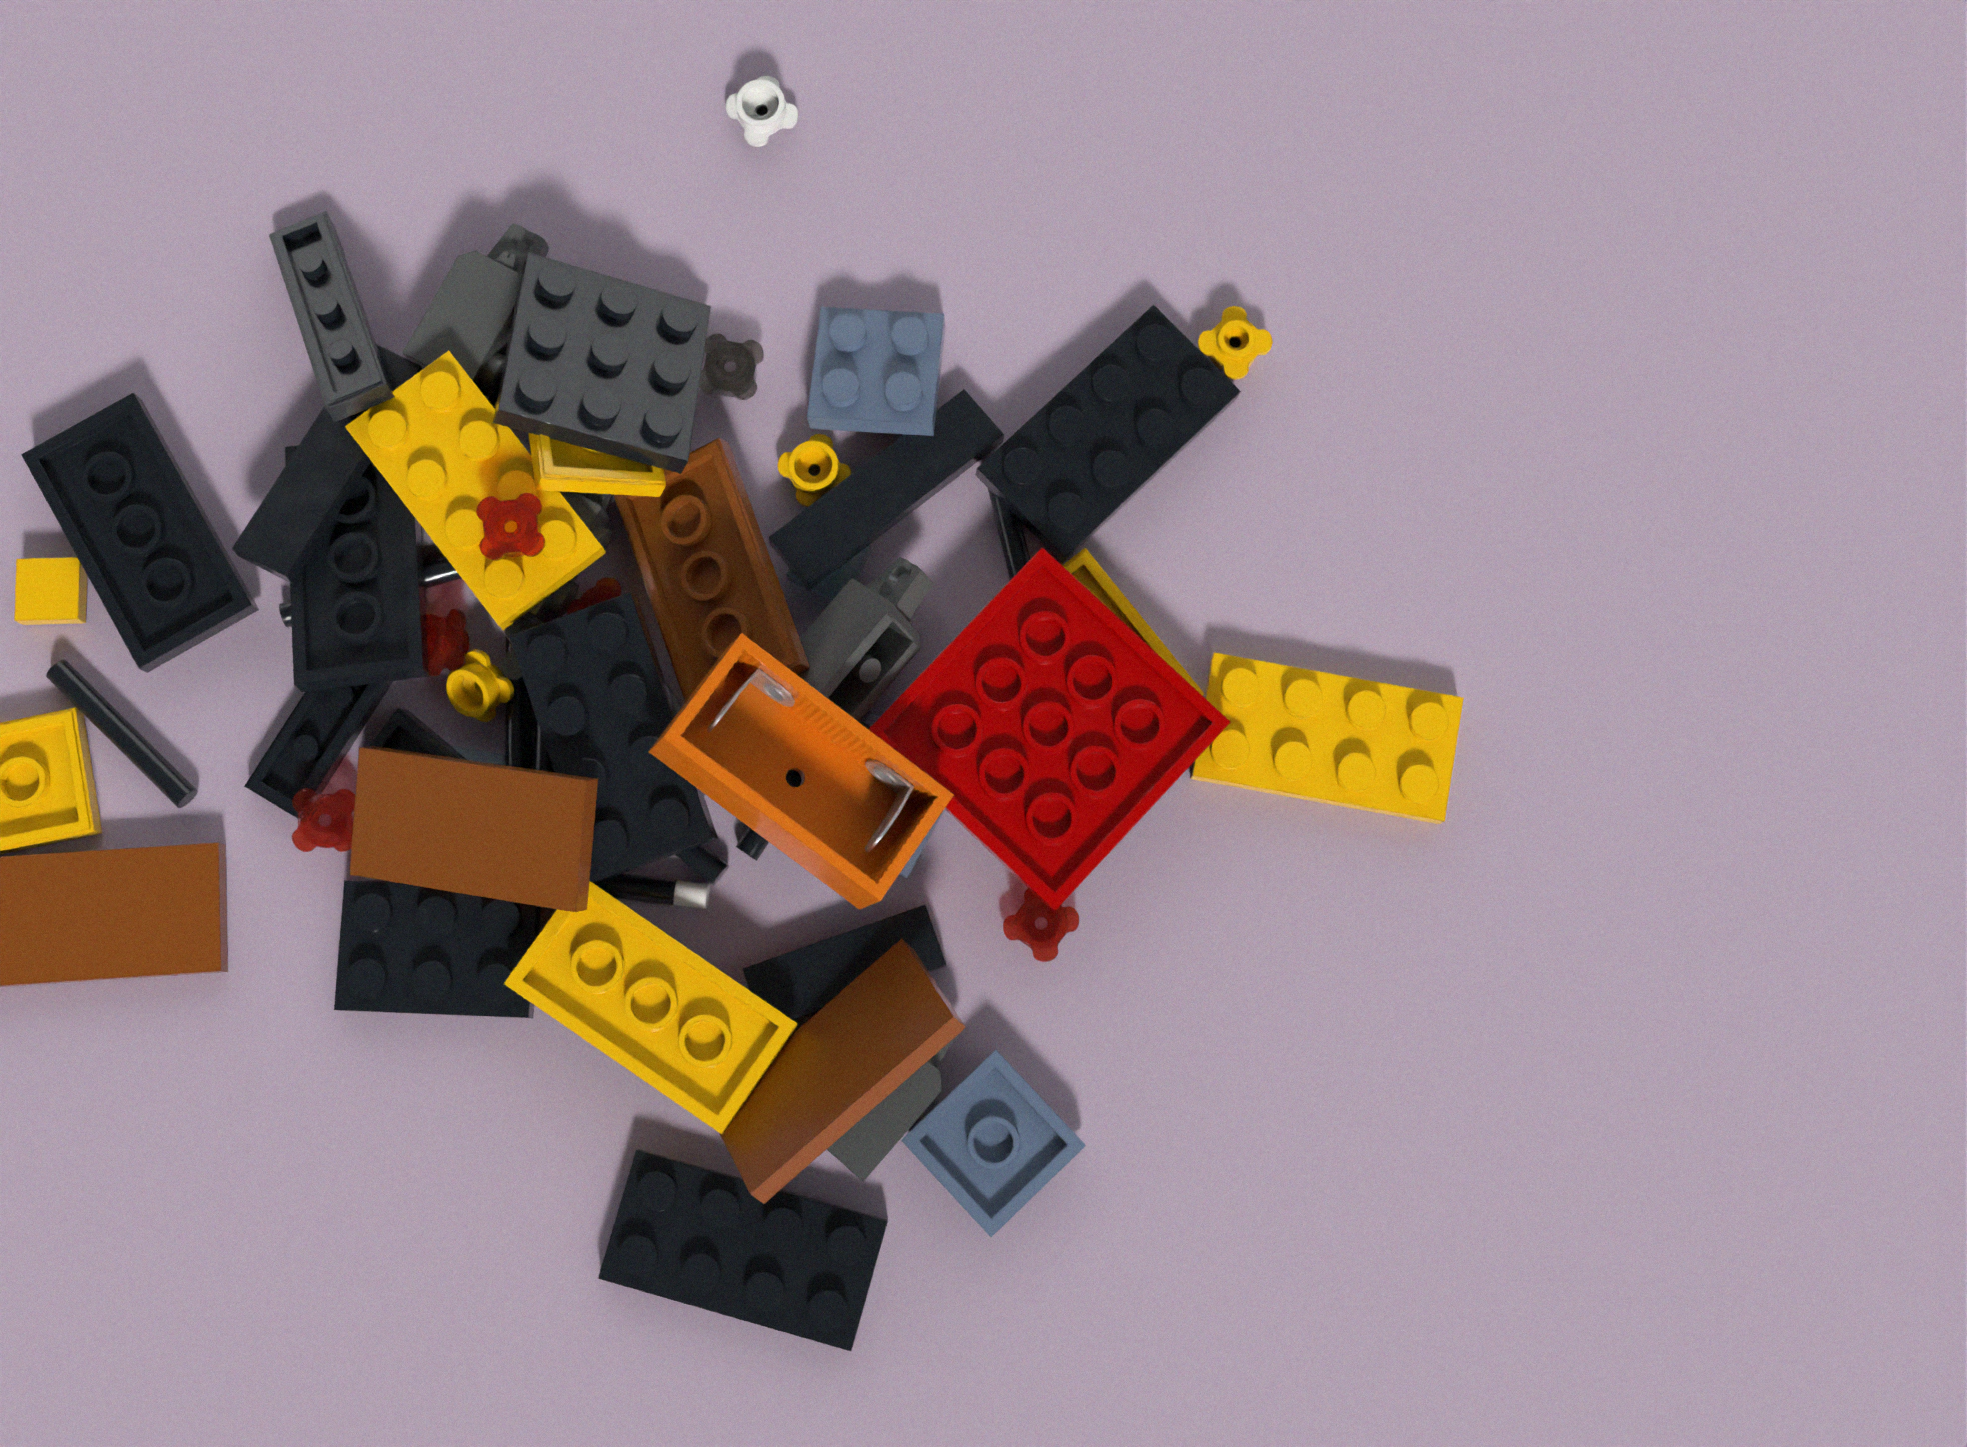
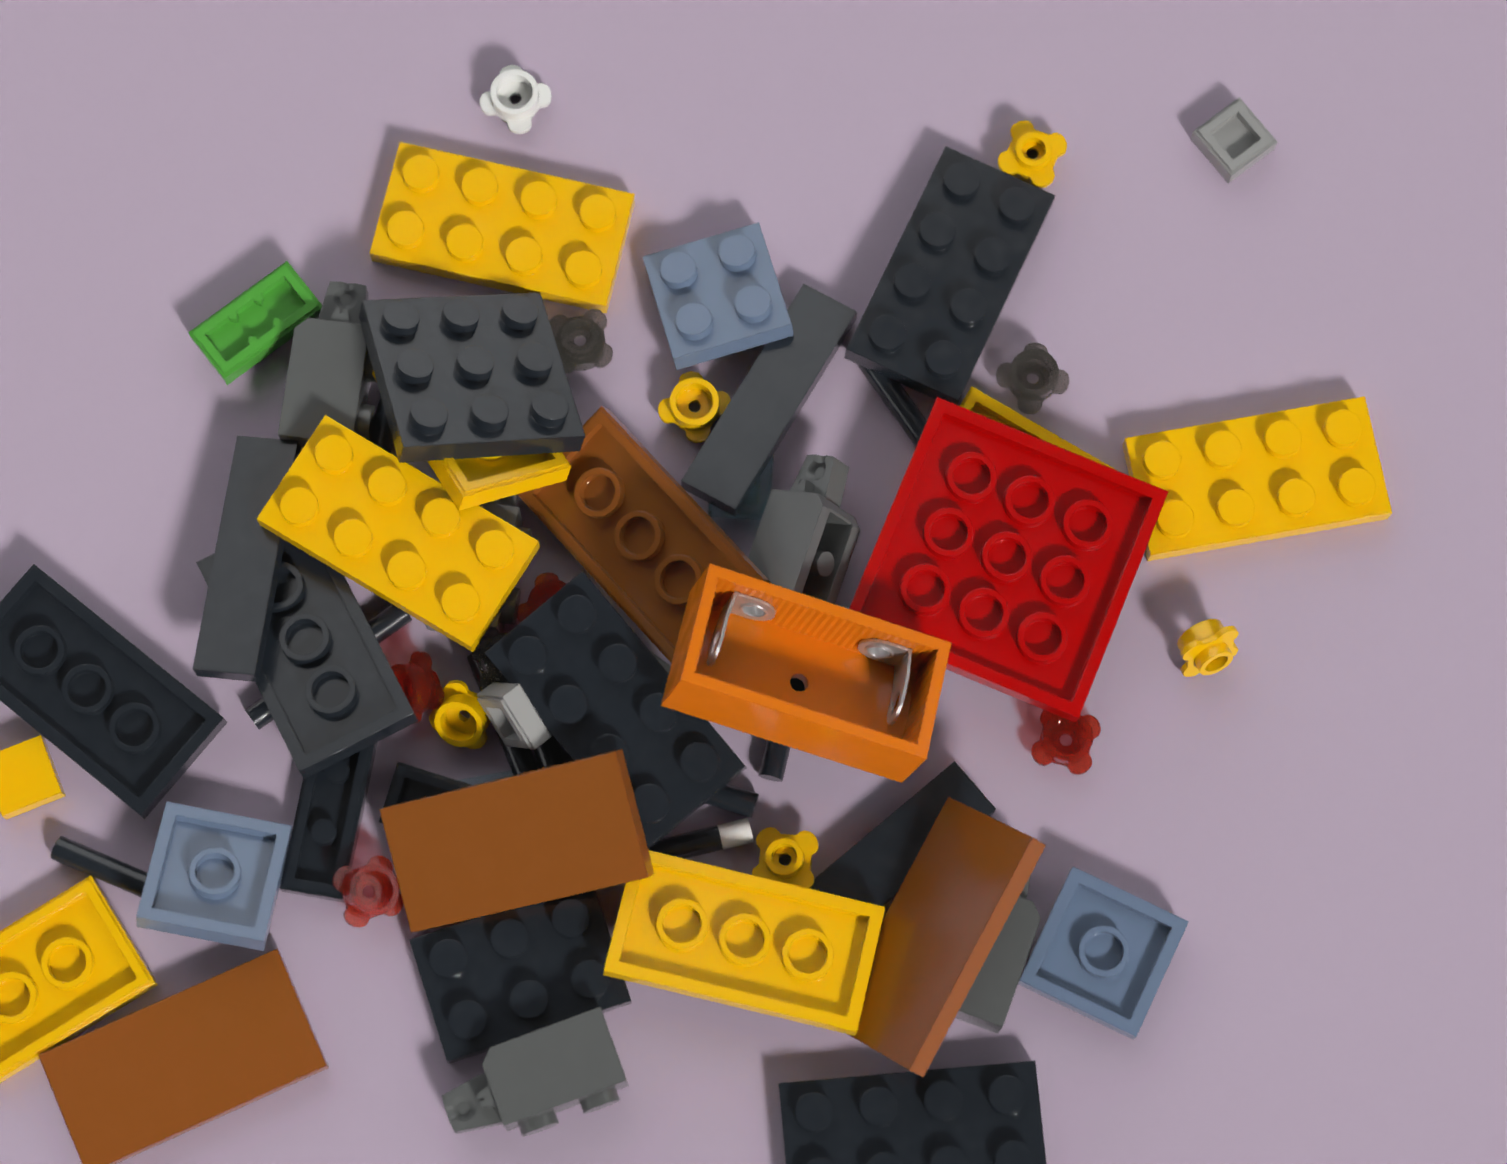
camera: 20 degrees left, 5 degrees down
(183, 752) = (214, 876): none -> sand blue plate
(331, 317) = (197, 425): black tile -> none
(415, 1057) = (539, 1076): none -> dark grey hinge
(430, 237) = (255, 322): none -> bright green plate
(516, 706) = (513, 715): none -> light grey tile
(524, 540) = (448, 567): clear red plate -> none
(702, 230) = (502, 227): none -> yellow plate
(730, 956) = (798, 847): none -> yellow plate
(1157, 545) = (1036, 361): none -> clear smoke plate
(1211, 886) = (1207, 647): none -> yellow plate
(1437, 399) = (1233, 140): none -> light grey tile

